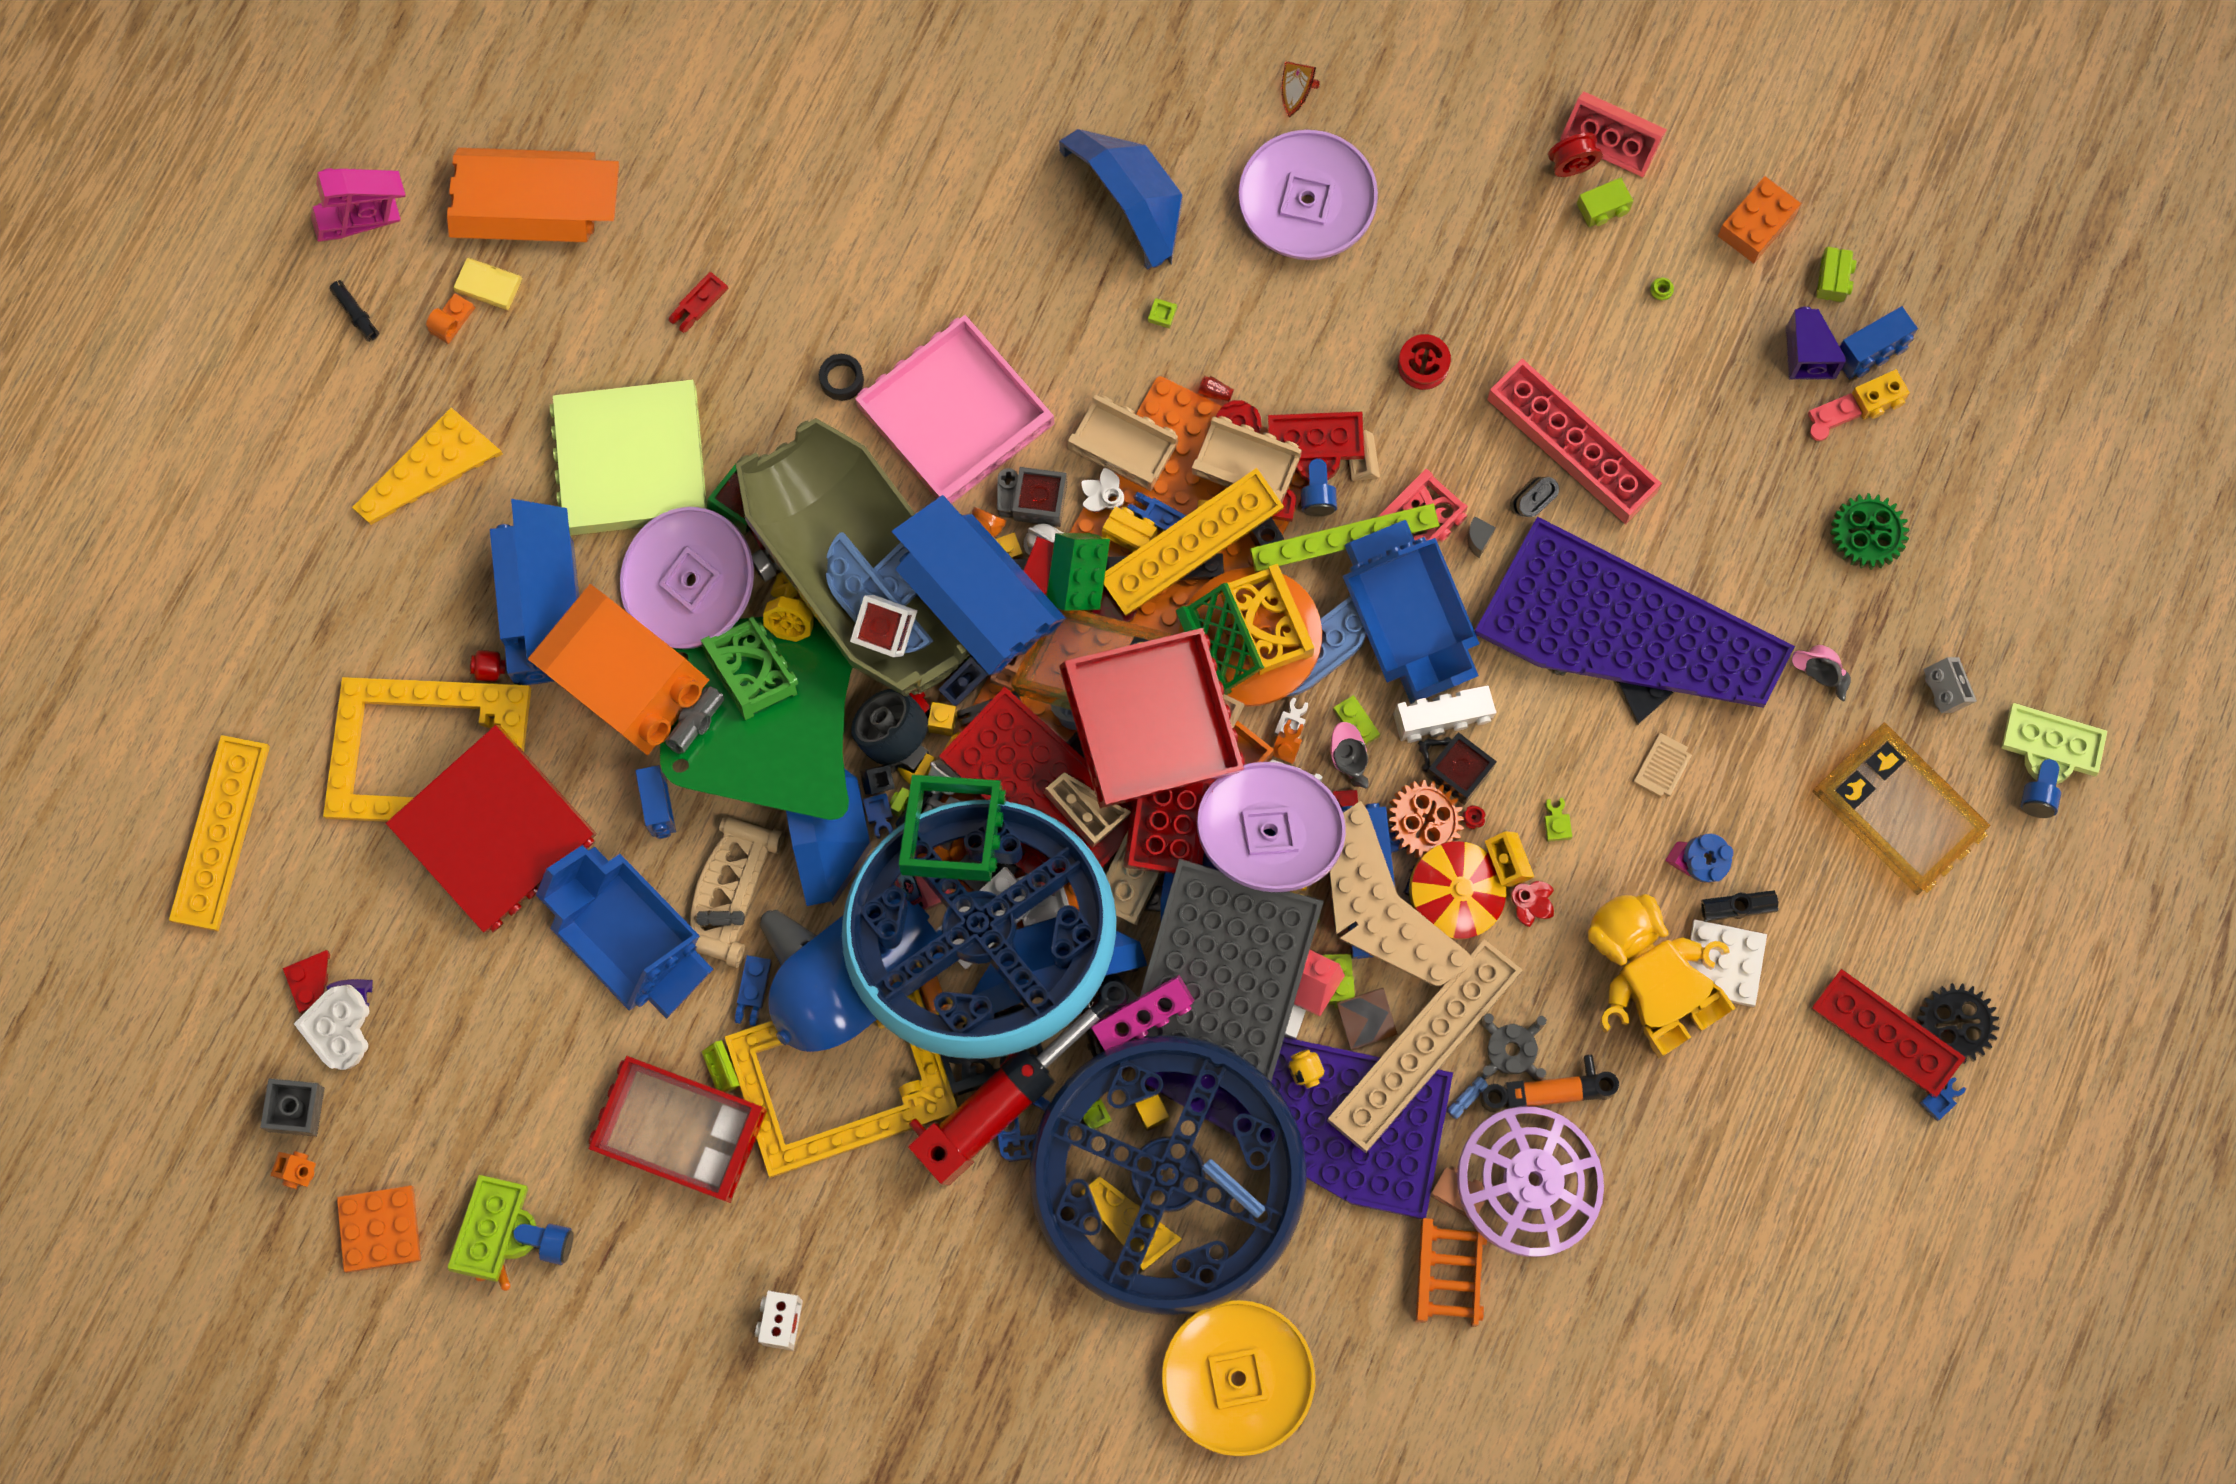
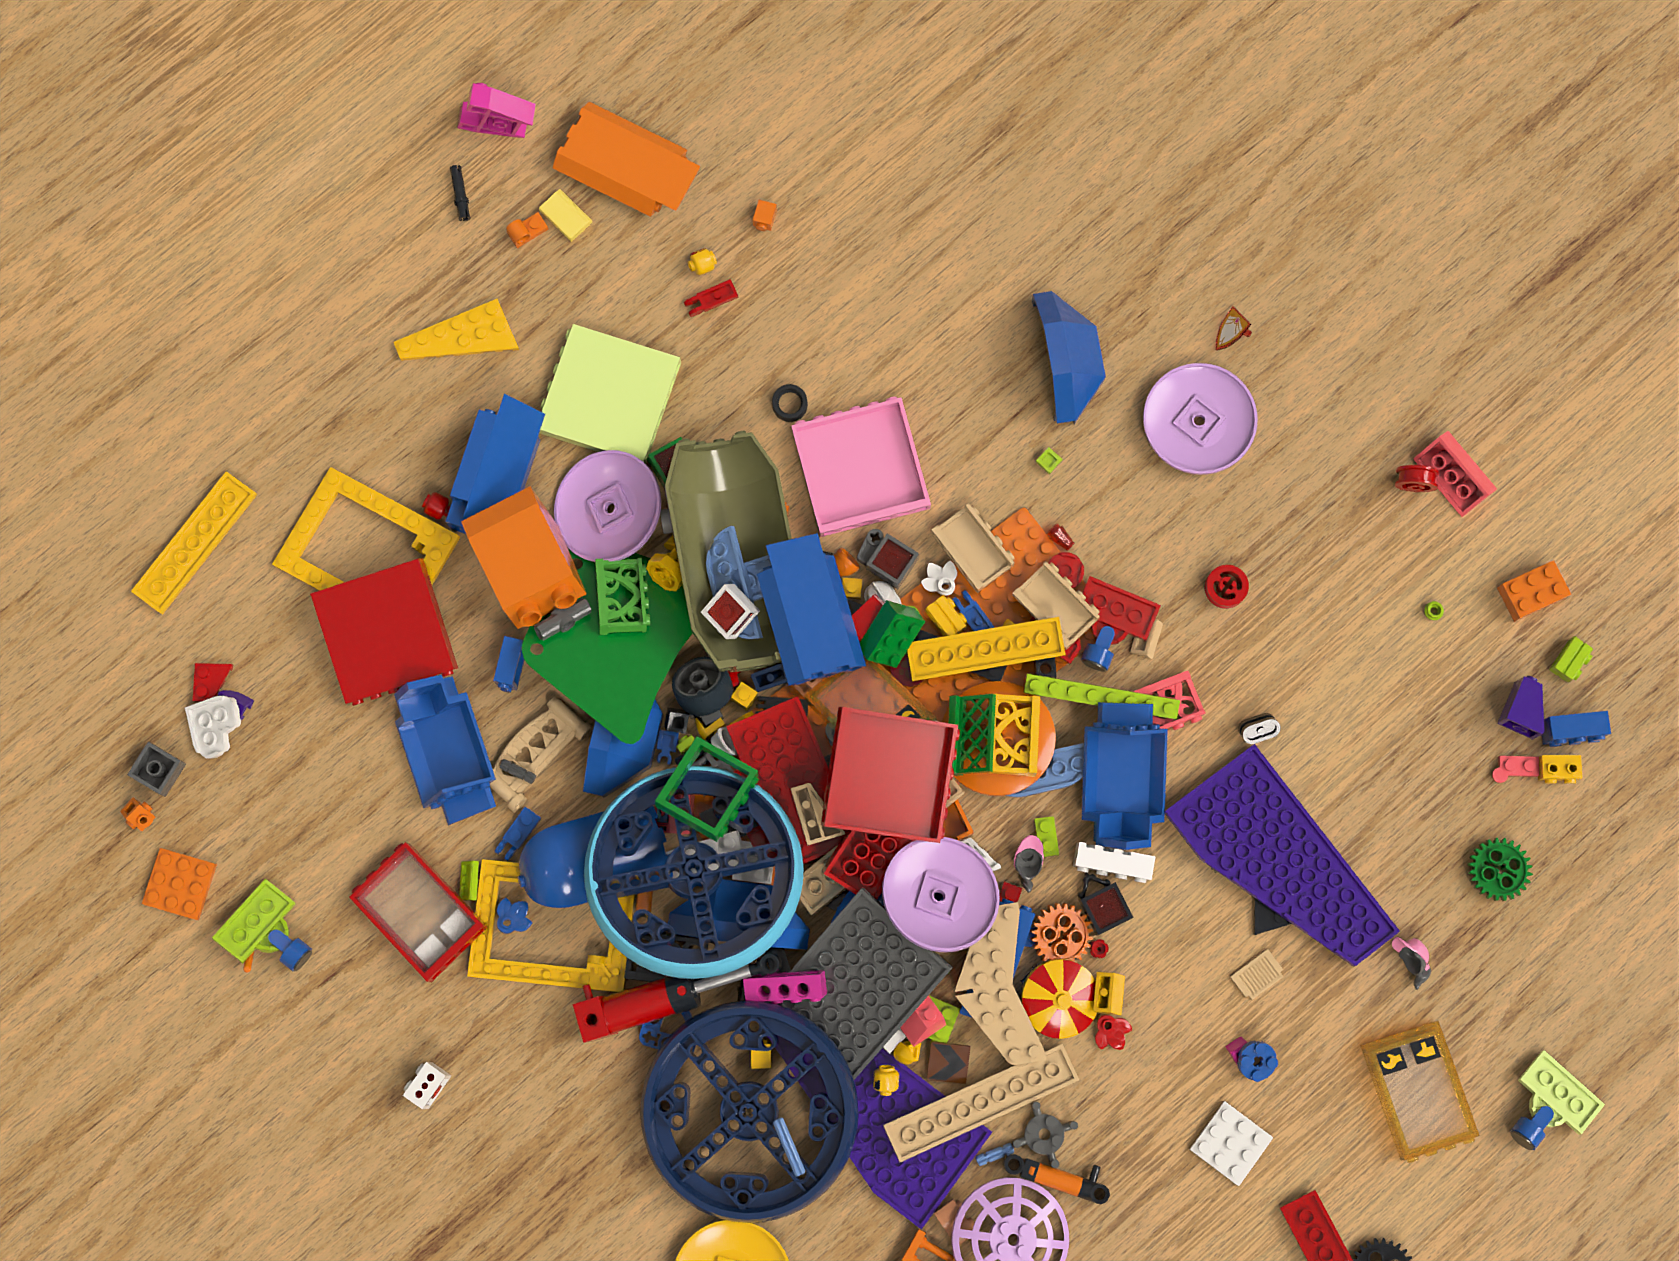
camera: 25 degrees right, 5 degrees up
(668, 266) = (702, 261): none -> yellow head
(716, 186) = (764, 215): none -> orange brick
(784, 934) = (558, 805): dark grey cone -> none
(793, 1080) = (514, 913): none -> blue plate
(1097, 1115) = (720, 1042): lime tile -> none
(1119, 1216) = (703, 1122): yellow wing -> none
(1288, 743) = (987, 830): orange plate -> none
(1294, 716) = (997, 817): white plate -> none
(1314, 1028) = (906, 1053): none -> yellow plate
(1479, 536) = (1204, 738): dark grey brick -> none
(1558, 824) = (1158, 982): lime plate -> none
(1574, 441) = (1309, 699): coral brick -> none
(1605, 202) = (1422, 524): lime brick -> none
(1657, 975) = (1174, 1132): yellow piece -> none
(1754, 904) = (1251, 1103): black piece -> none
(1949, 685) = (1502, 1015): light grey brick -> none

